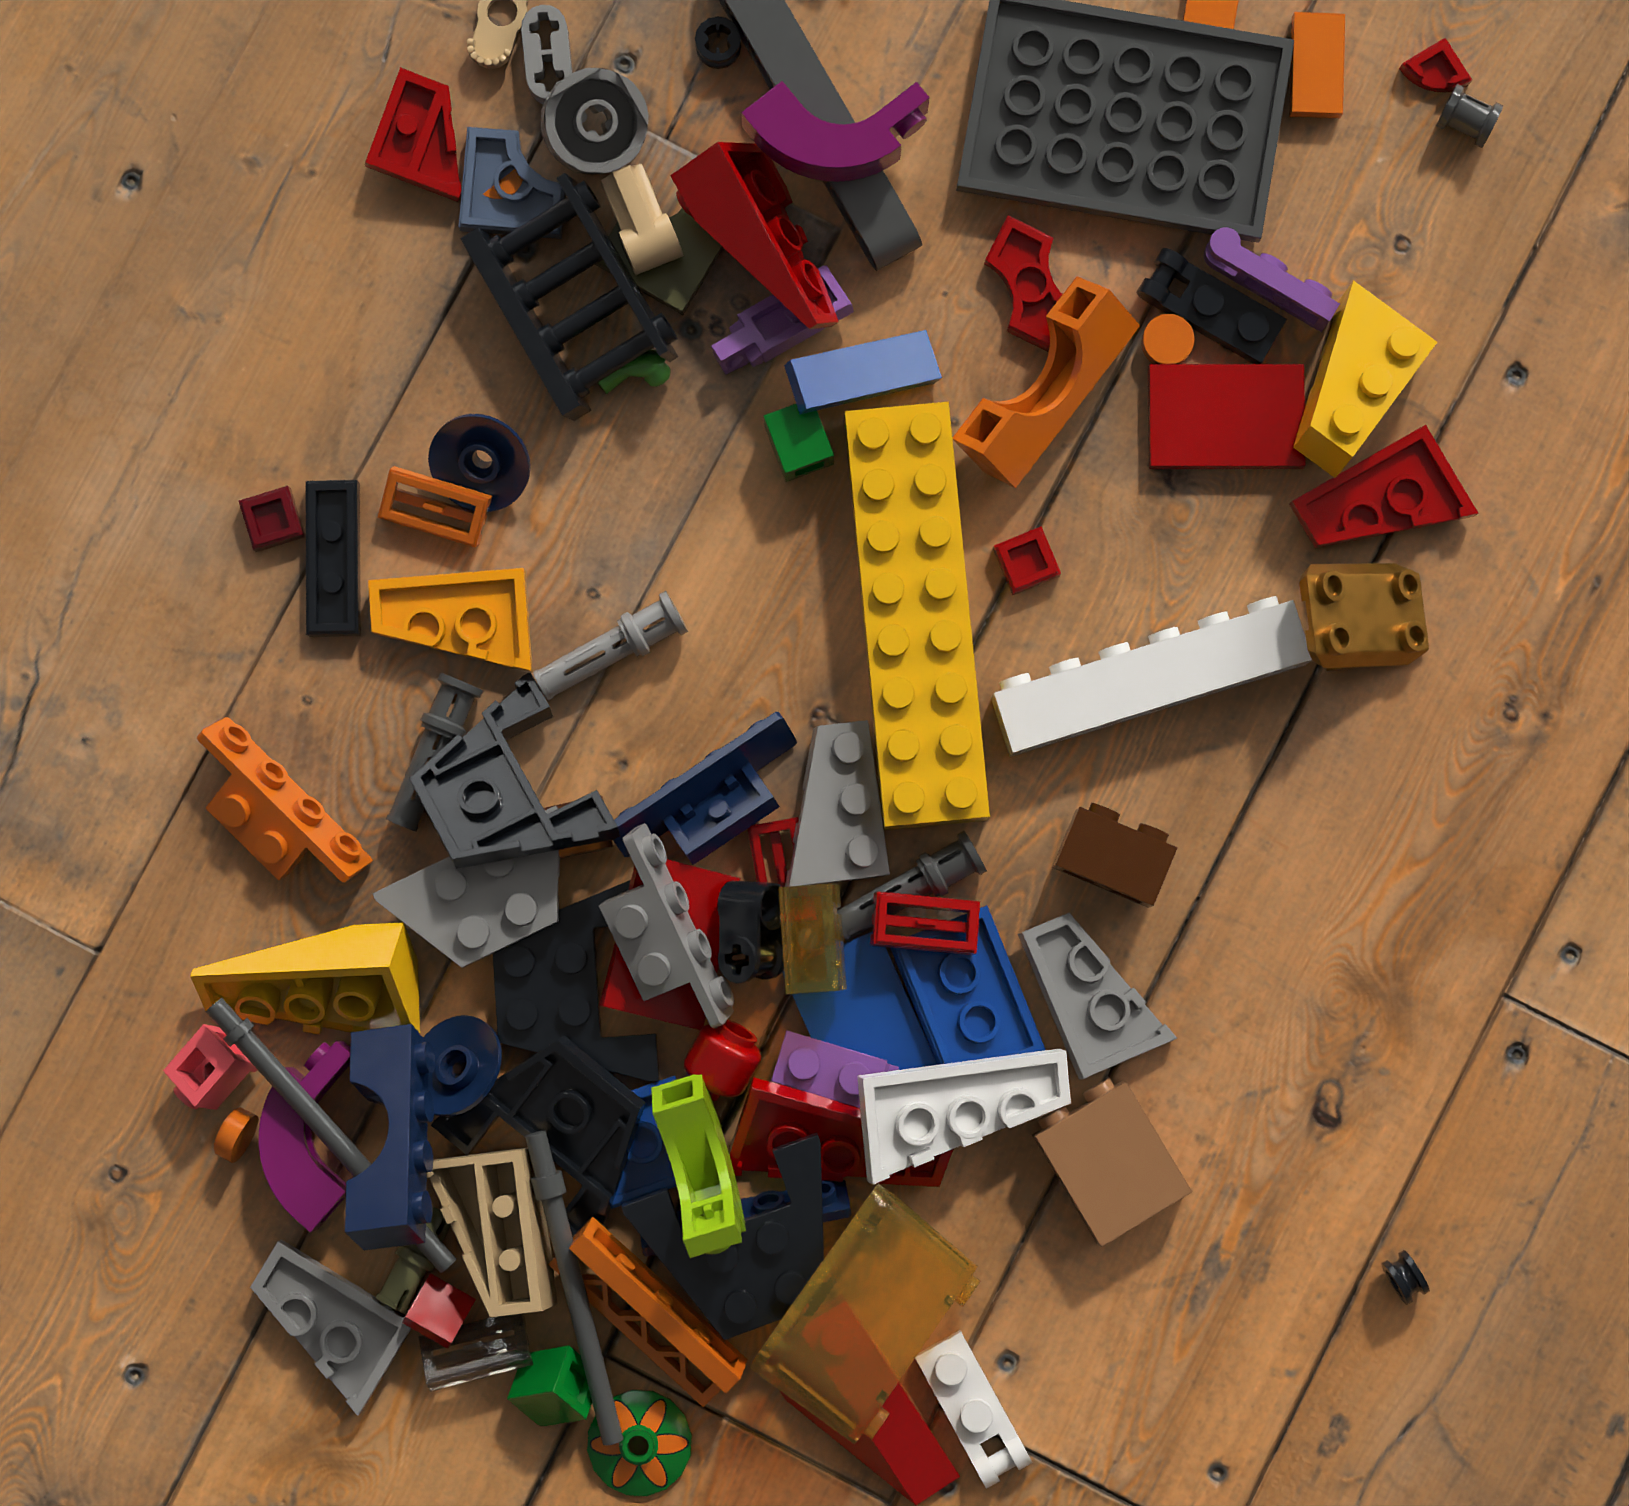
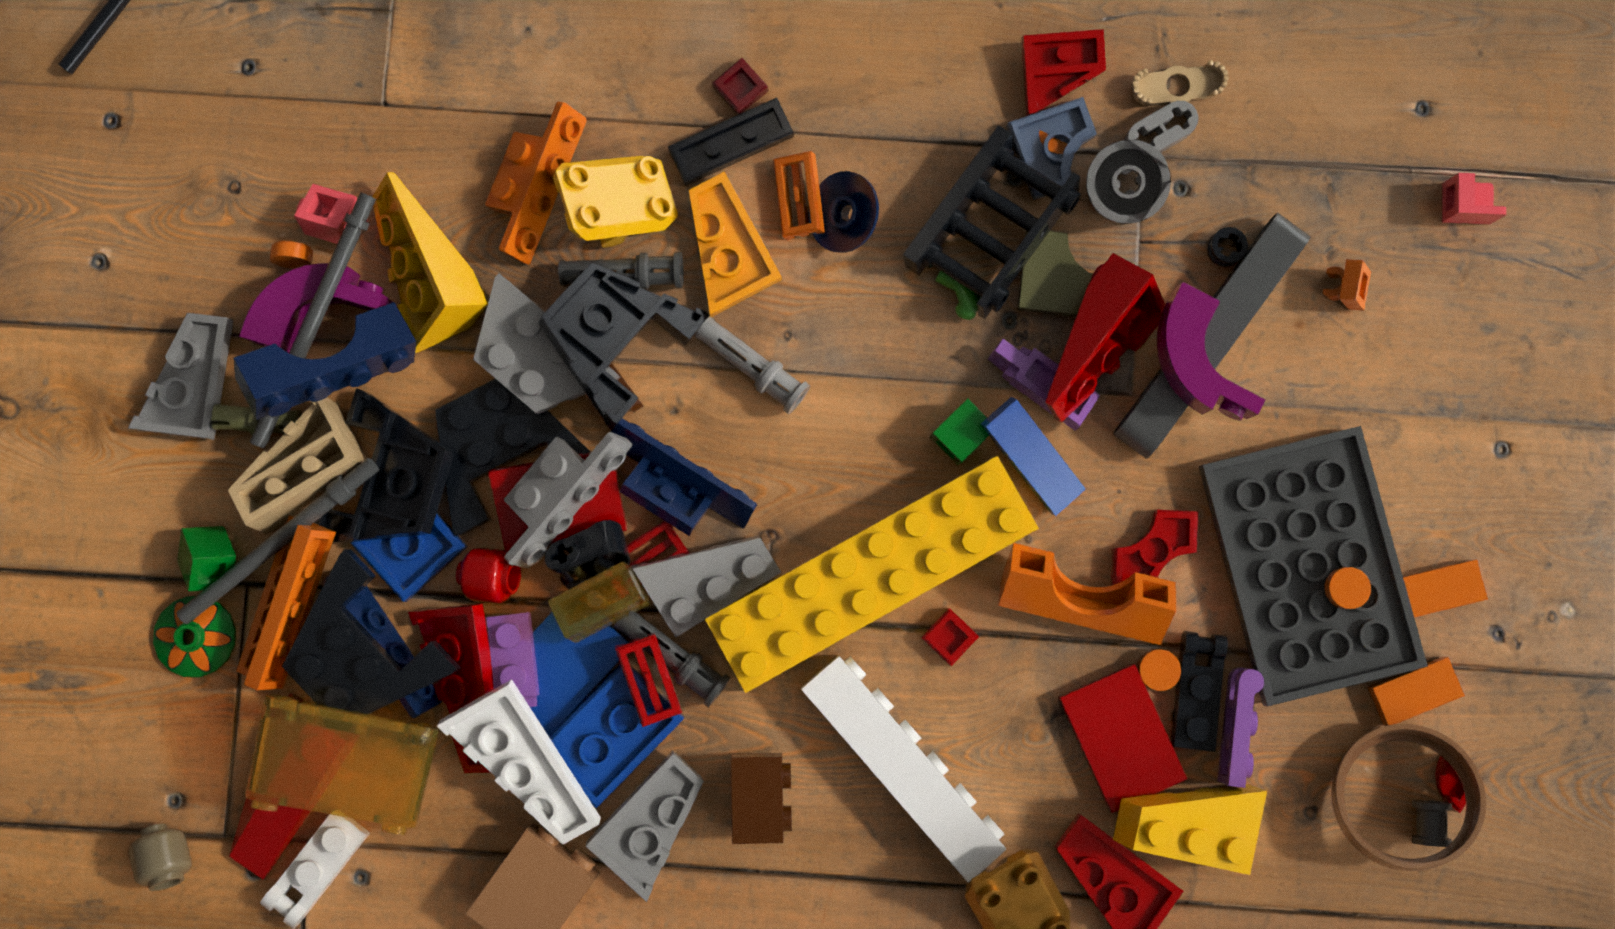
camera: 65 degrees right, 0 degrees up
(343, 718) = (615, 198): none -> yellow shield
(439, 1311) = (224, 452): tile -> none
(466, 1047) = (406, 392): dark blue dish -> none
(482, 1367) = (174, 471): clear smoke tile -> none
(645, 231) = (1065, 253): tan piece -> none
(700, 1165) = (398, 596): lime arch -> none
(1168, 87) = (1347, 588): none -> orange tile
(1401, 58) = (1454, 755): none -> medium nougat piece

